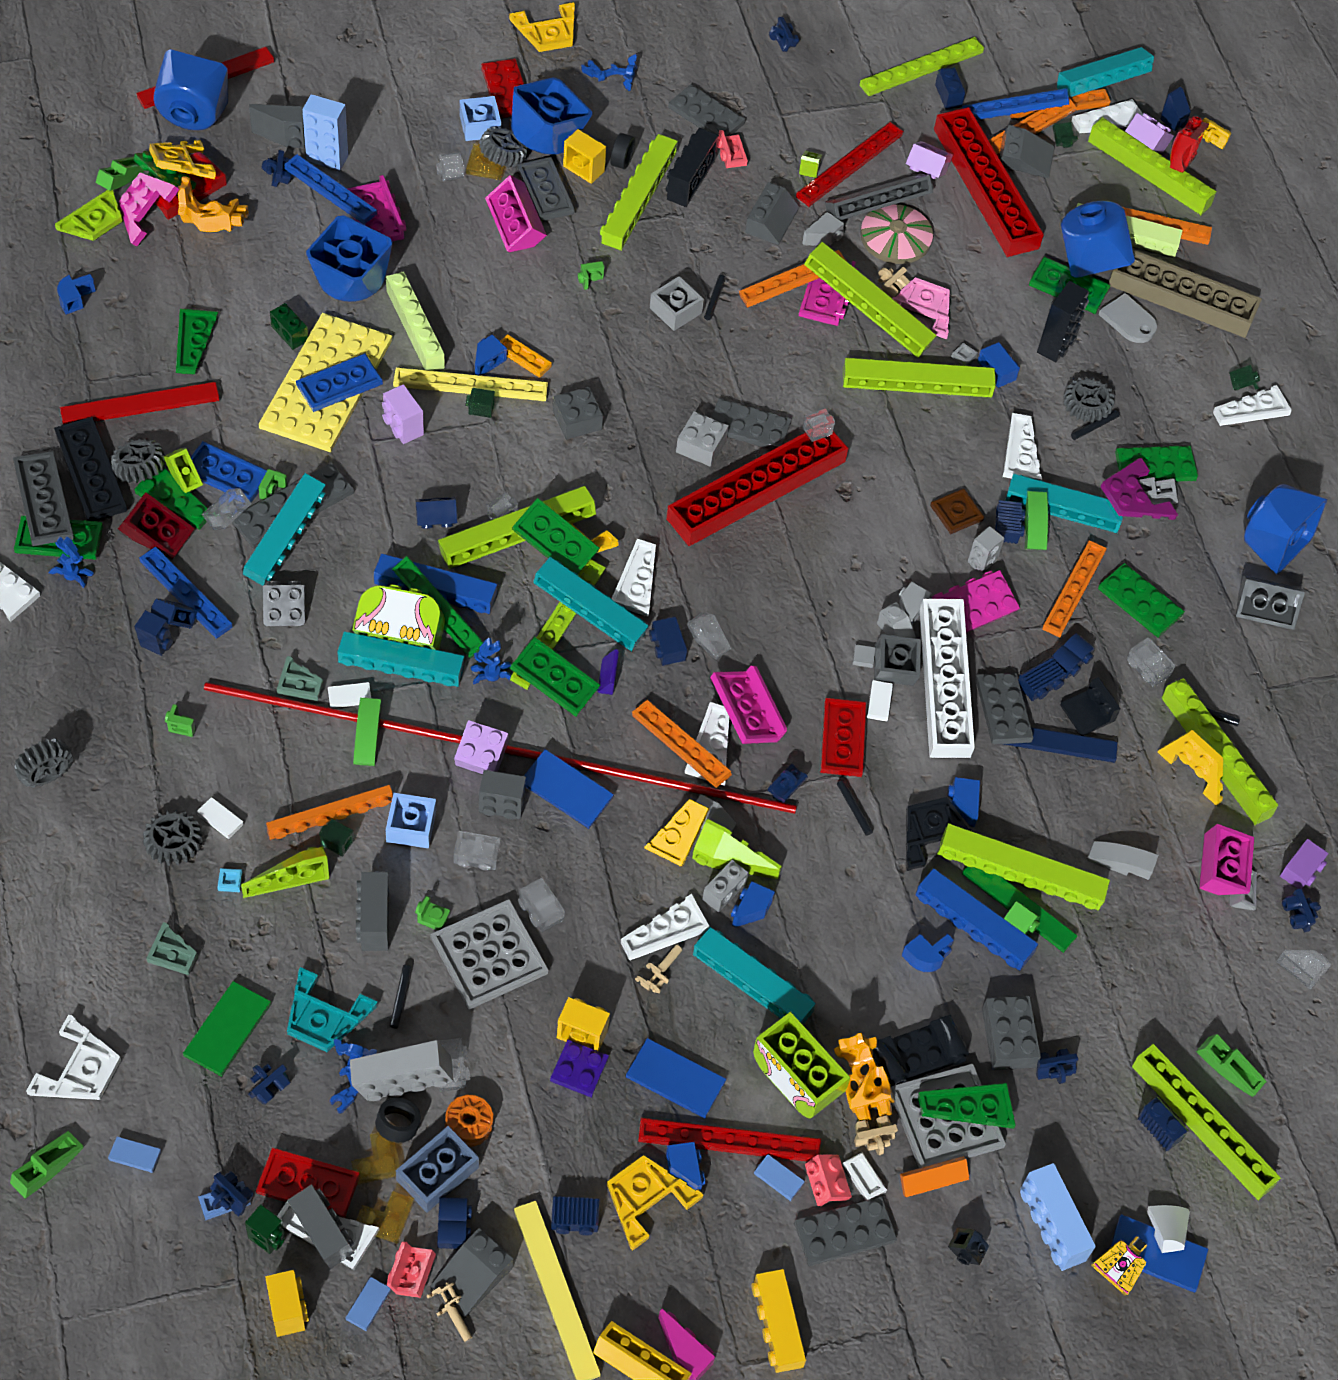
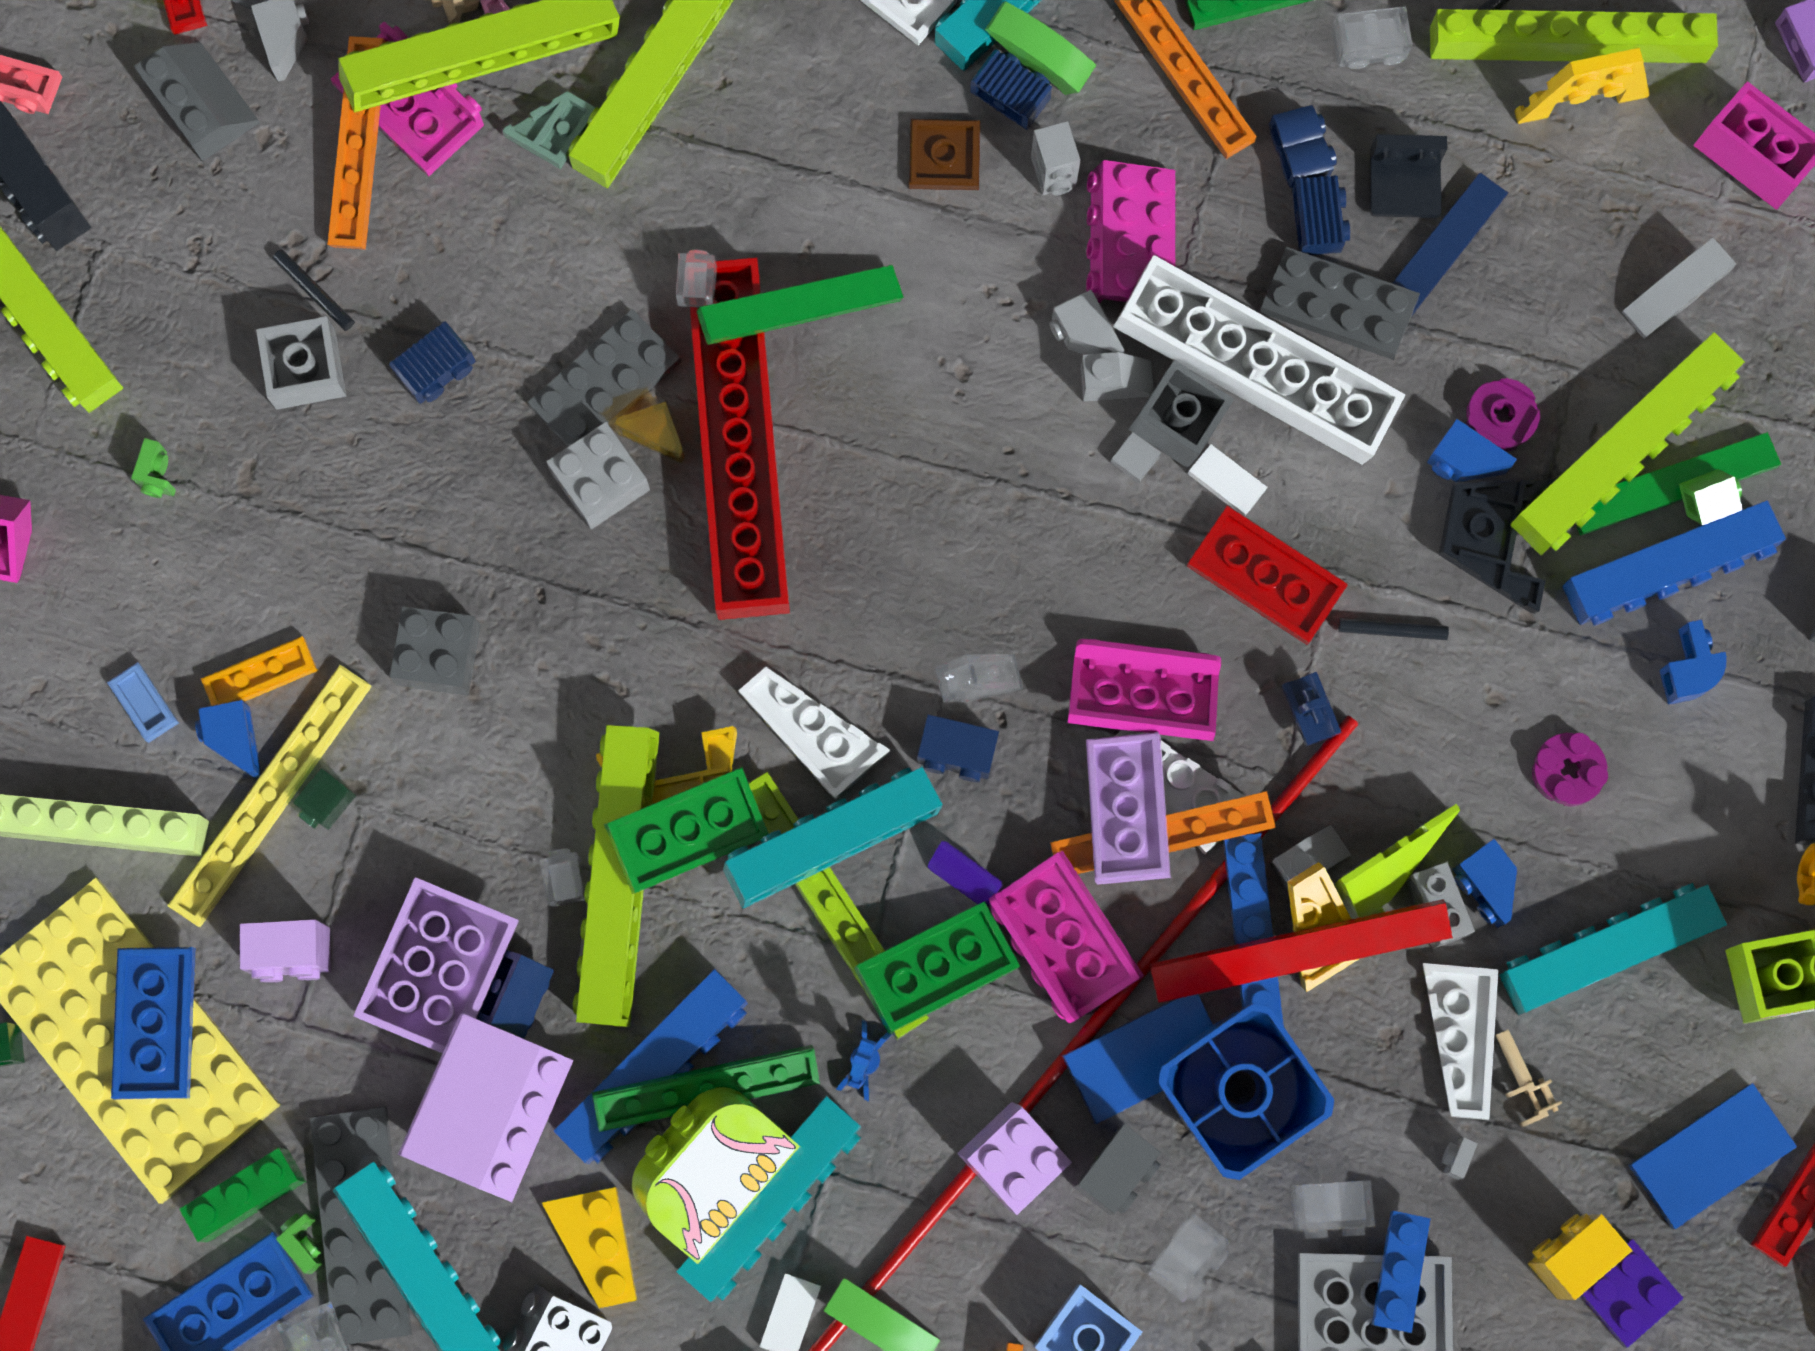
camera: 55 degrees left, 20 degrees up
(280, 451) = (242, 1195): none -> green brick
(337, 601) = (597, 1243): none -> yellow wing
(376, 520) = (485, 1107): none -> lavender slope
(429, 472) = (435, 965): none -> lavender slope
(482, 319) = (143, 702): none -> medium blue tile
(526, 947) = (1401, 1271): none -> blue plate
(574, 821) = (1286, 1098): none -> blue piece
(601, 953) = (1458, 1157): none -> light grey plate
(602, 725) = (1064, 938): none -> dark pink bracket
(651, 813) = (1251, 910): none -> blue plate
(661, 825) = (1301, 950): none -> red tile
(684, 720) = (1128, 808): none -> lavender tile
(711, 353) = (433, 363): none -> dark blue brick
(740, 450) = (653, 430): none -> clear yellow slope
(837, 931) = (1577, 749): none -> magenta plate
(838, 476) = (799, 304): none -> green tile
(854, 349) = (552, 128): none -> sand green wing
(995, 817) = (1521, 407): none -> magenta plate

